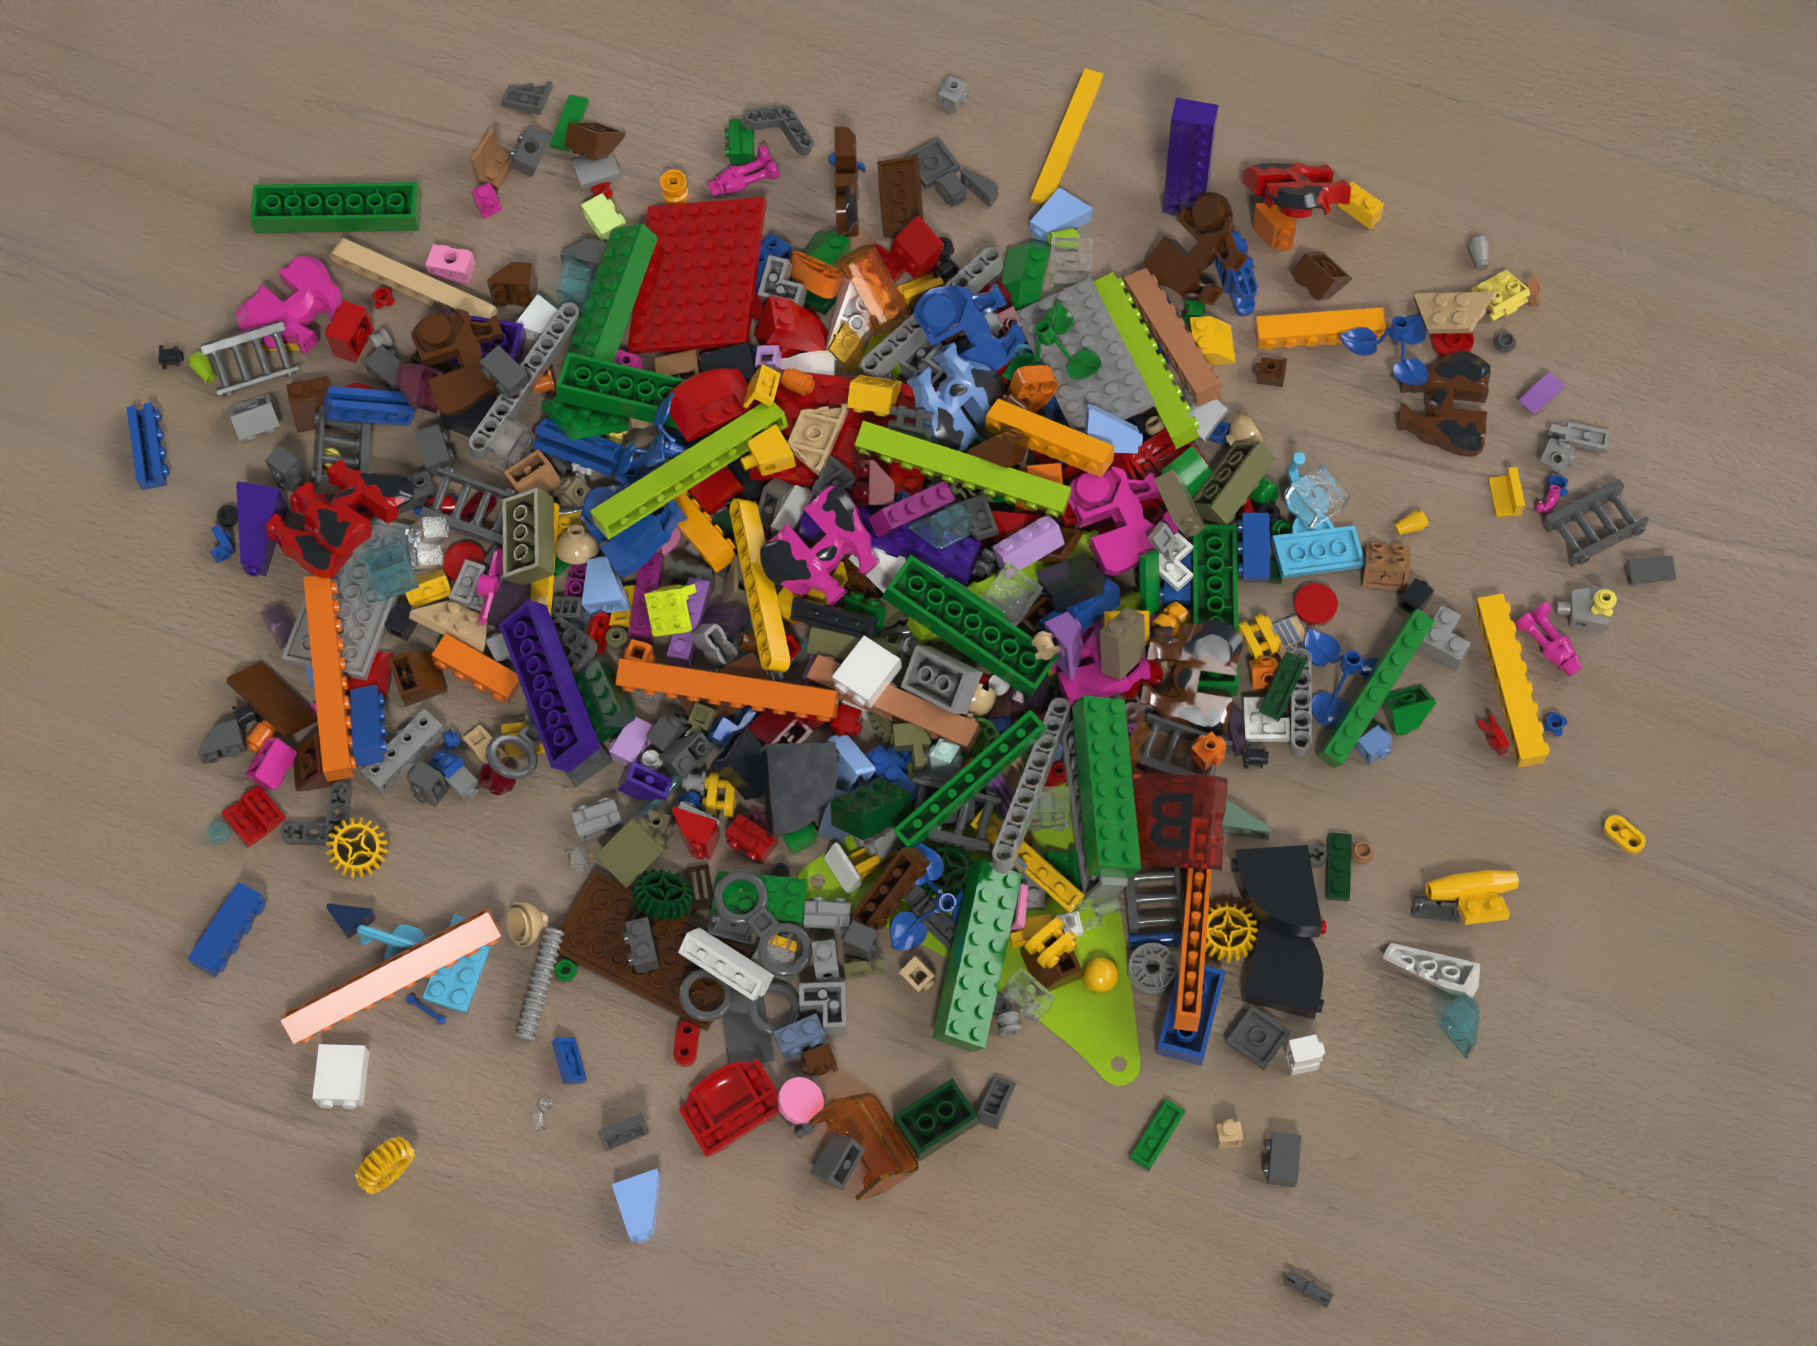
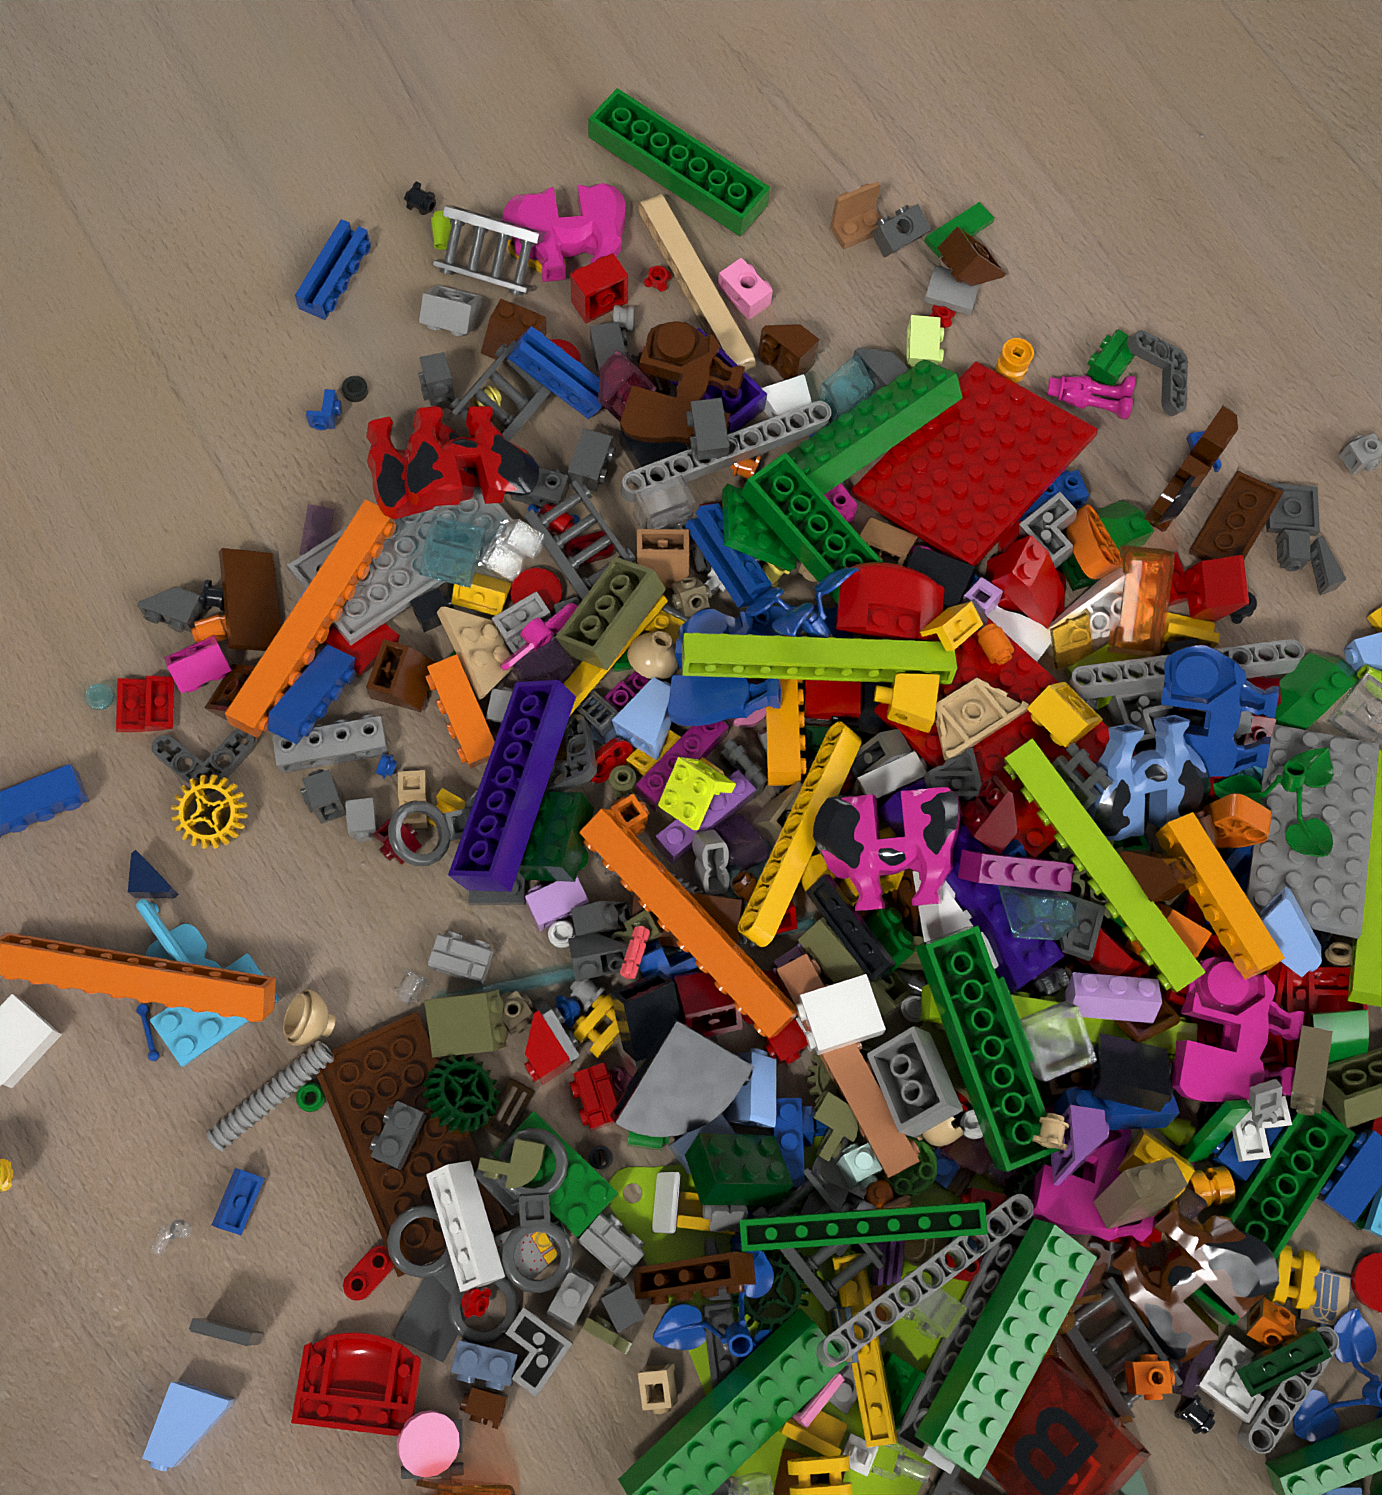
camera: 25 degrees right, 5 degrees up
(255, 508) = (376, 398): dark purple slope -> none
(446, 762) = (359, 787): blue plate -> none
(486, 200) = (824, 250): dark pink brick -> none
(527, 97) = (937, 178): dark grey wing -> none
(644, 783) = (535, 956): dark purple slope -> none
(708, 730) = (635, 952): none -> coral axle
(734, 900) = (522, 1168): none -> olive brick
(766, 1004) = (475, 1301): none -> red plate
(946, 269) = (1230, 629): black brick -> none

